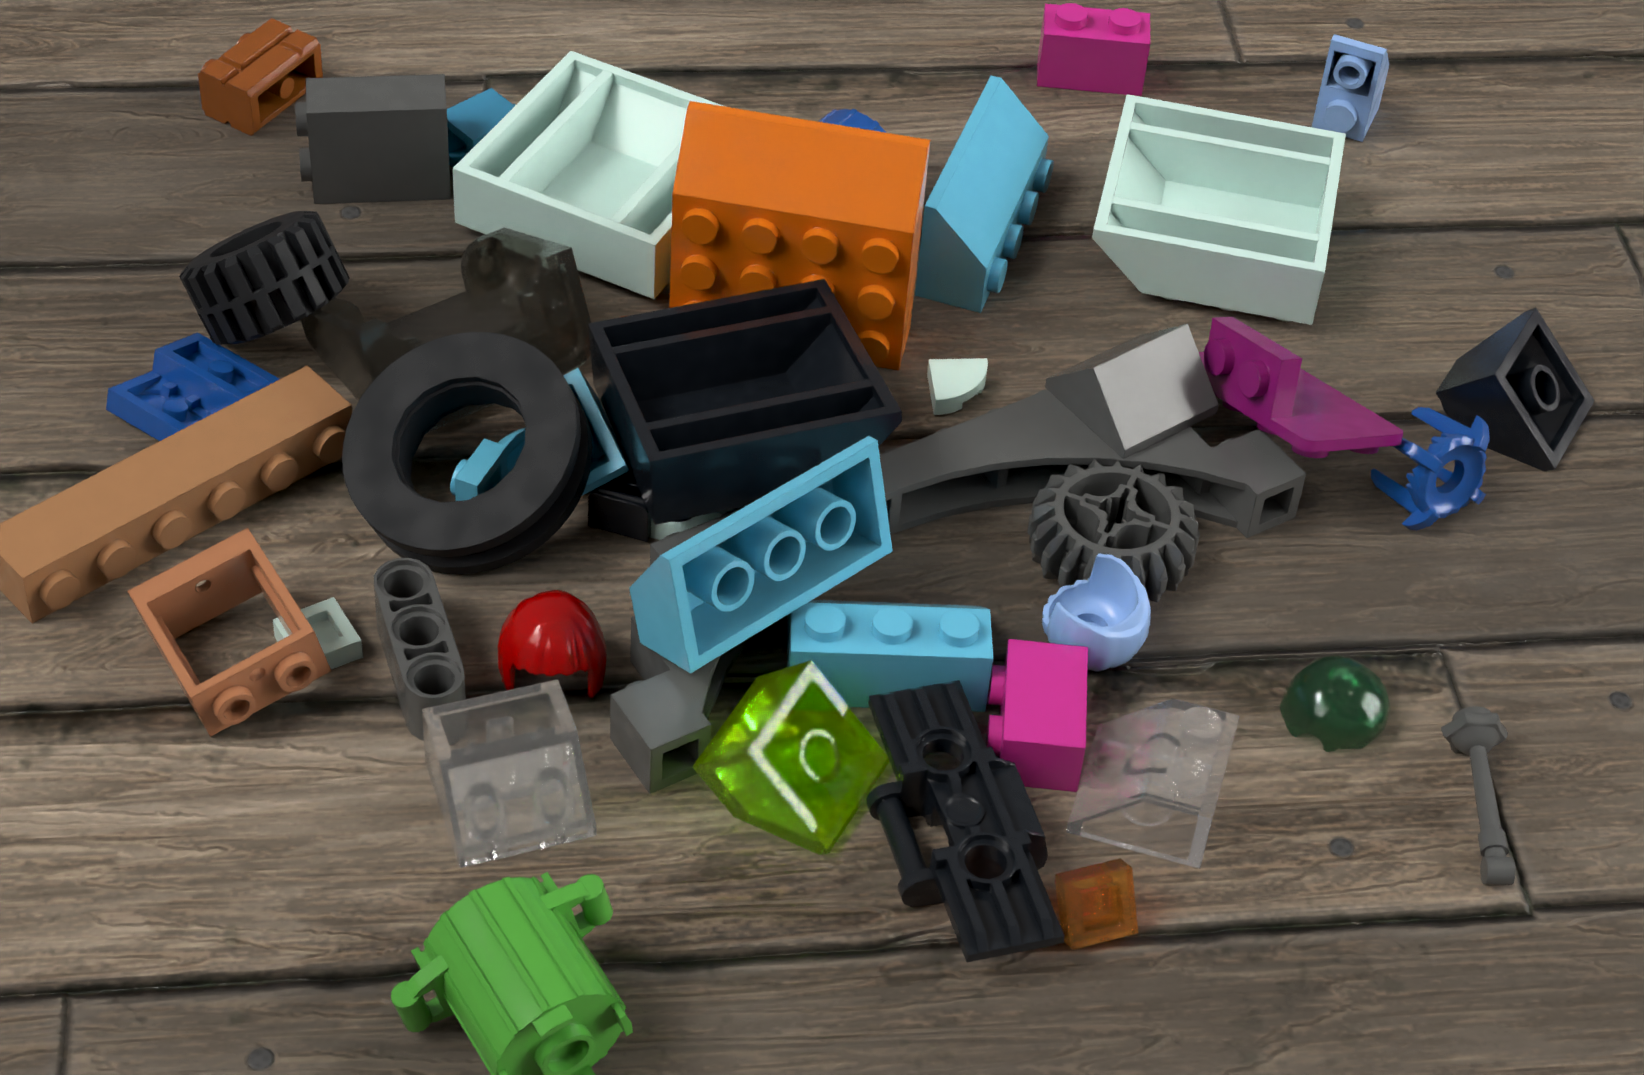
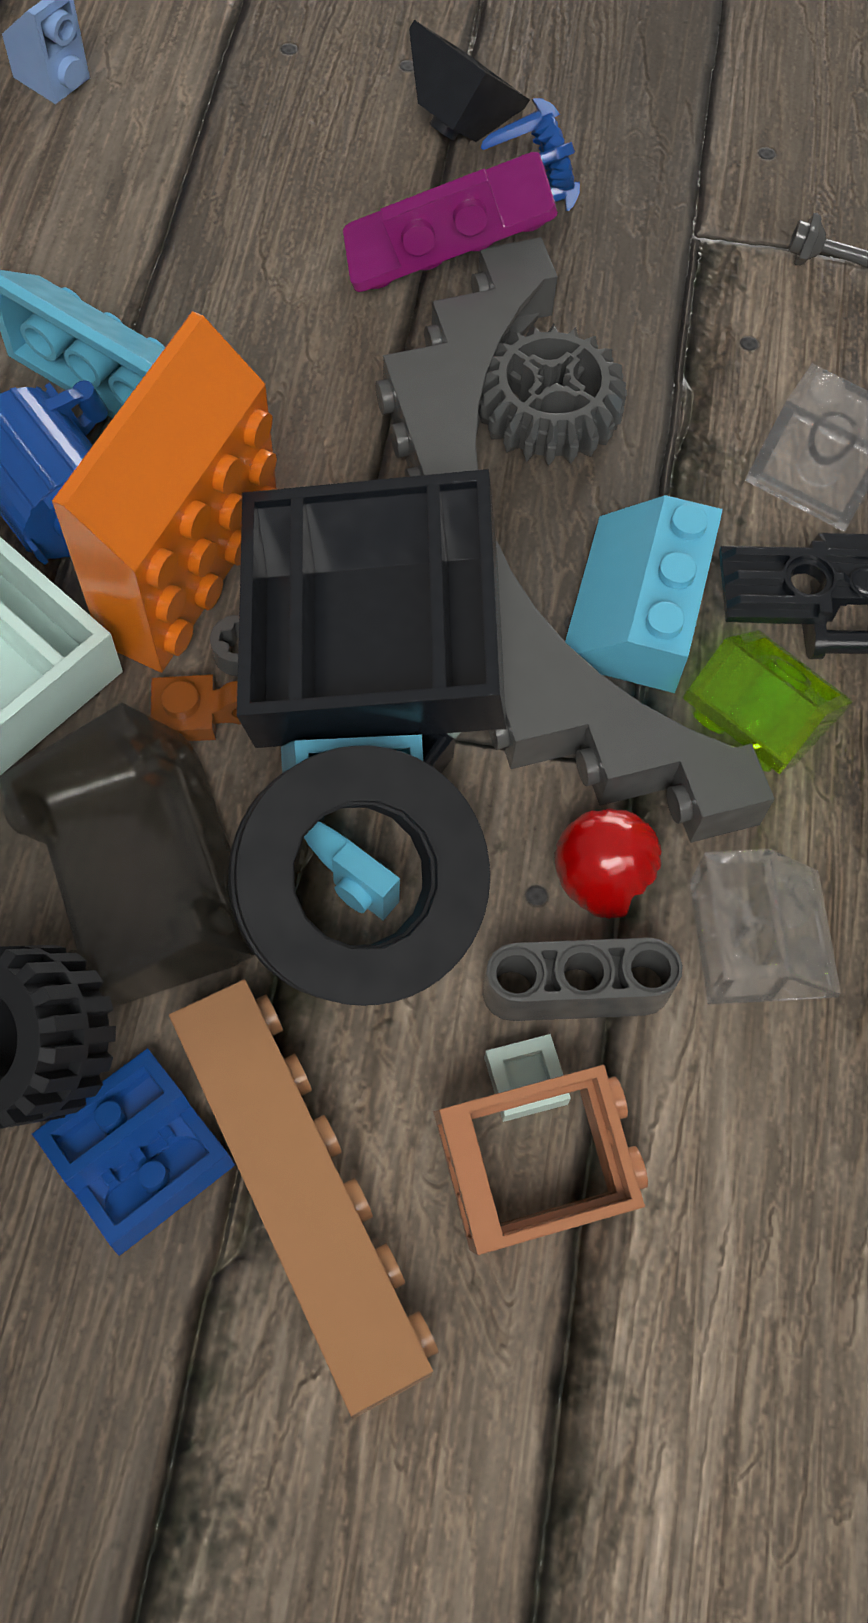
camera: 75 degrees left, 20 degrees up
(765, 560) = (612, 638): medium azure slope -> none
(955, 382) = (319, 456): light aqua tile -> none
(1041, 712) = (758, 498): dark pink brick -> none
(1102, 613) = (663, 428): light blue hair -> none
(1139, 390) = (418, 311): slope -> none
(1220, 207) = (185, 176): light aqua slope -> none
(1336, 703) = (757, 314): clear green hair -> none

